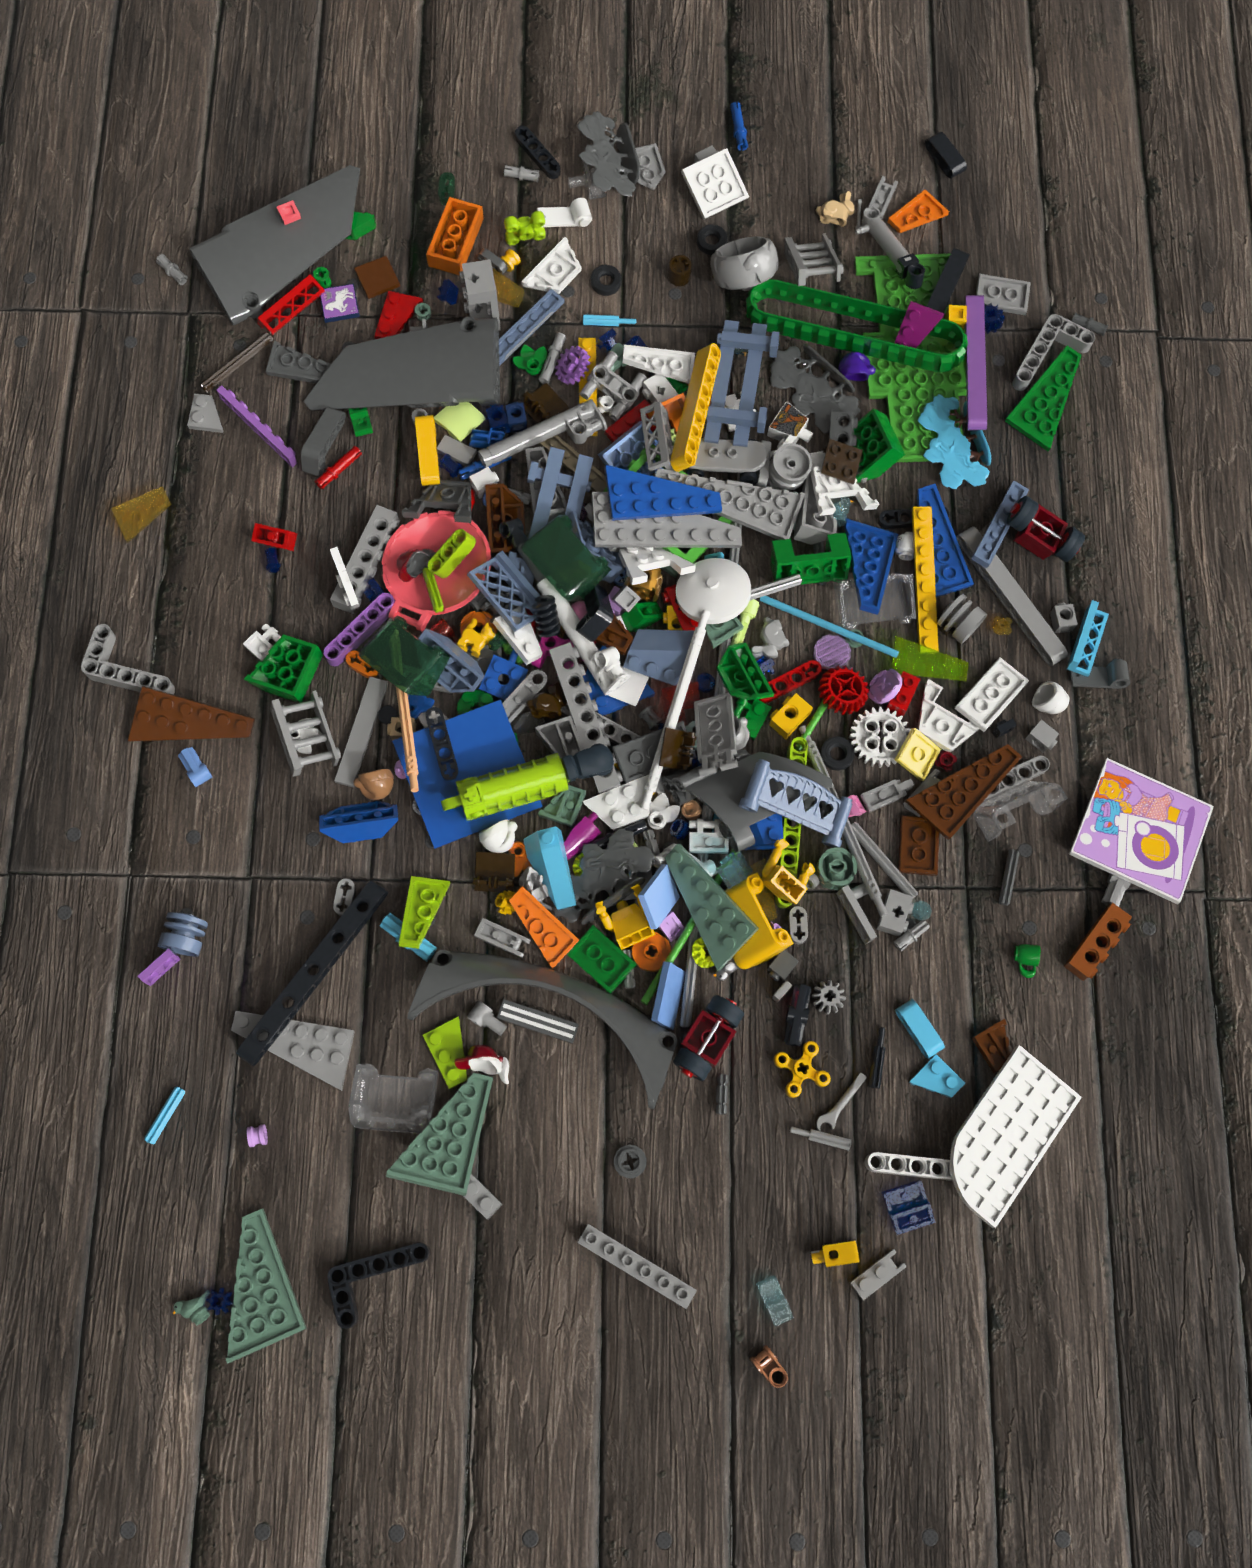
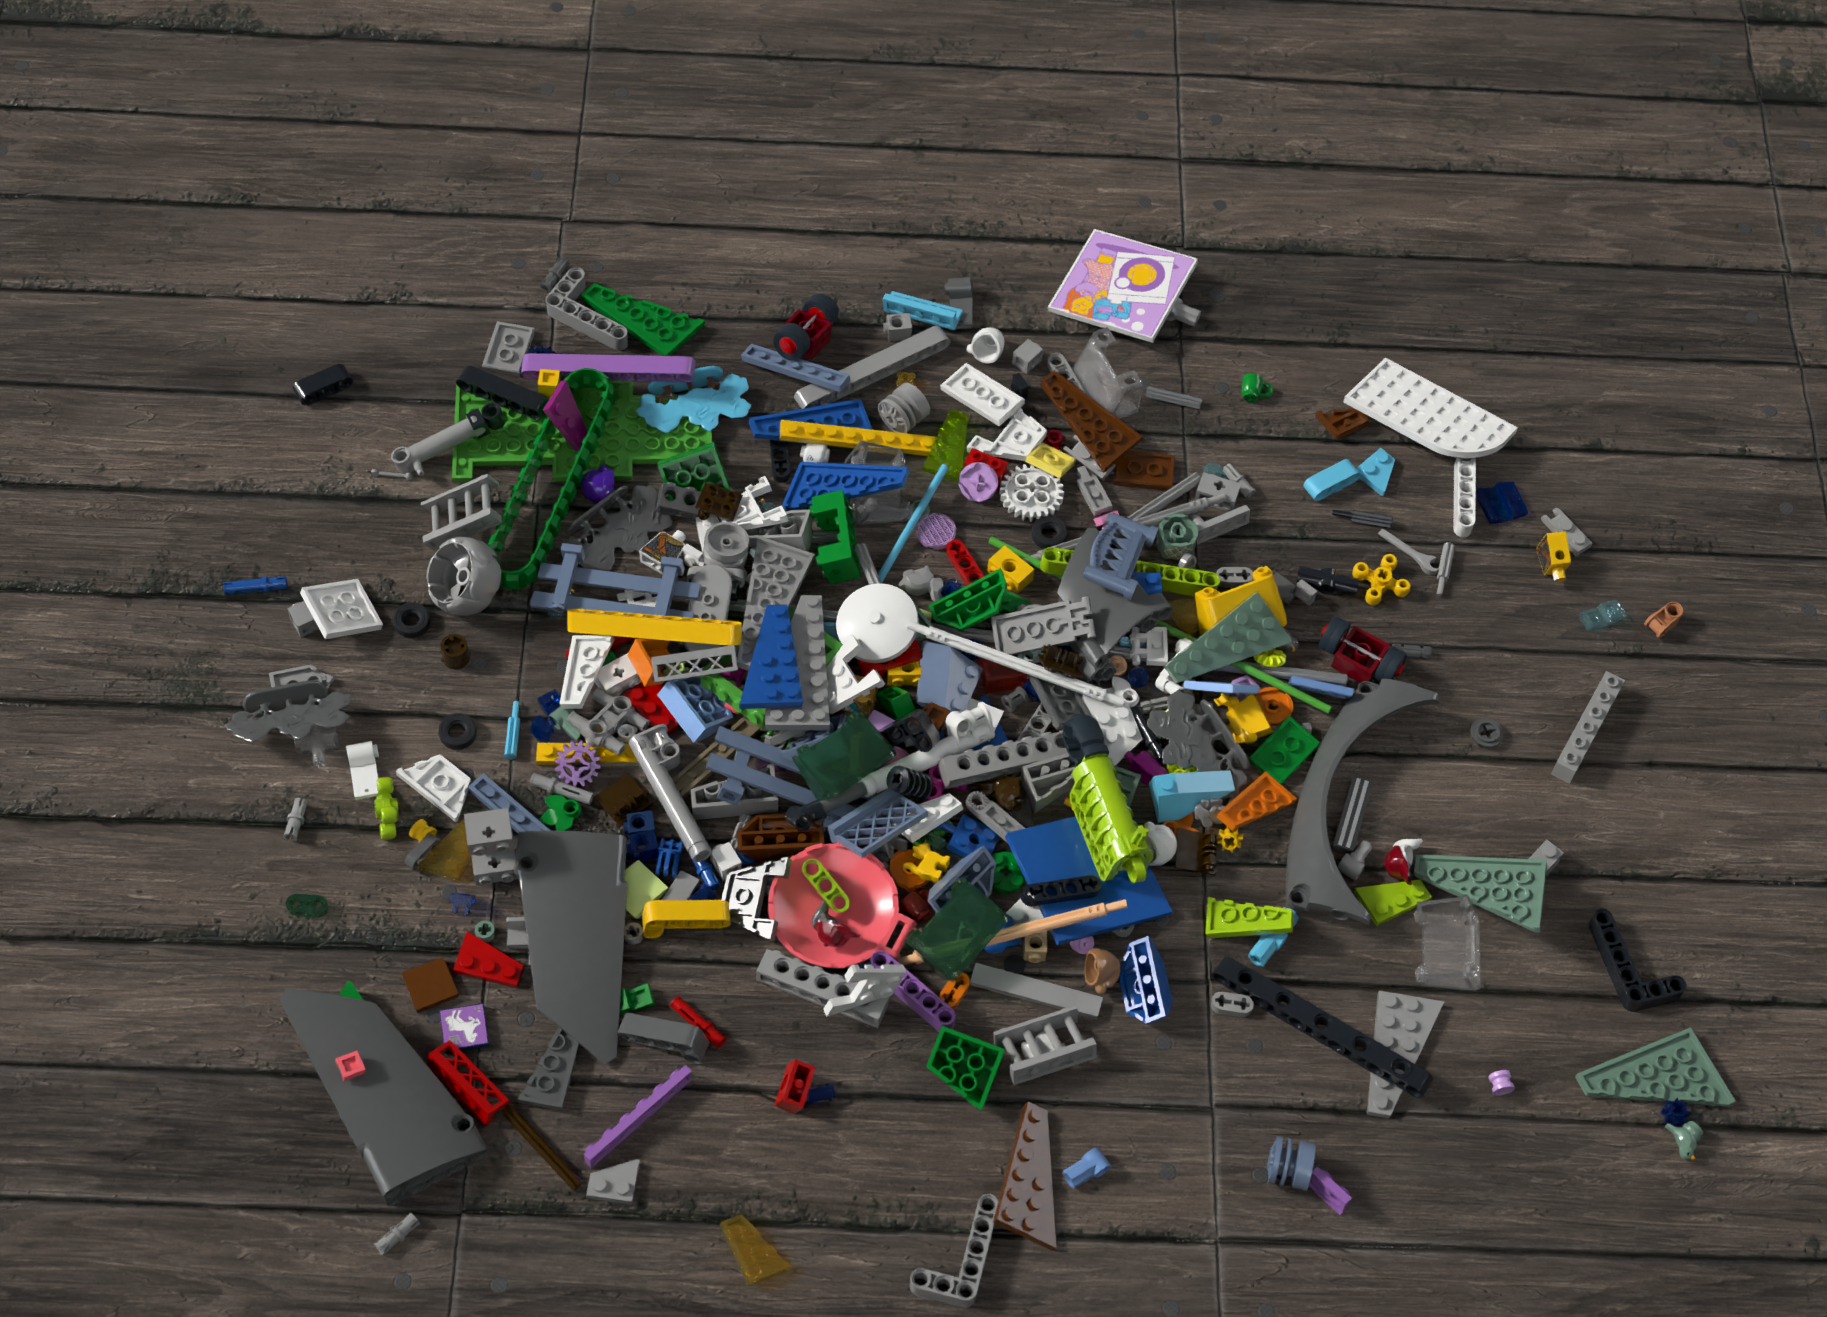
camera: 90 degrees left, 15 degrees down
(164, 1115) = (1489, 1182): medium azure axle -> none
(259, 644) = (933, 1102): white plate -> none
(324, 277) = (427, 1039): green bush -> none
(433, 590) = (867, 909): lime axle -> none
(455, 236) = (385, 889): orange brick -> none
(500, 937) = (1266, 848): light grey hinge -> none
(536, 153) = (266, 805): black beam -> none
(626, 598) = (887, 705): light grey brick -> none
(733, 869) = (1191, 616): clear light blue brick -> none
(780, 880) = (1202, 574): yellow torso -> none
(835, 211) = (387, 494): tan animal -> none
(835, 1001) = (1307, 553): light grey gear -> none
(850, 699) = (982, 525): red gear -> none
(883, 196) = (371, 448): light grey hinge -> none
(917, 212) = (396, 417): orange wing -> none
(1111, 915) = (1235, 331): dark orange brick -> none

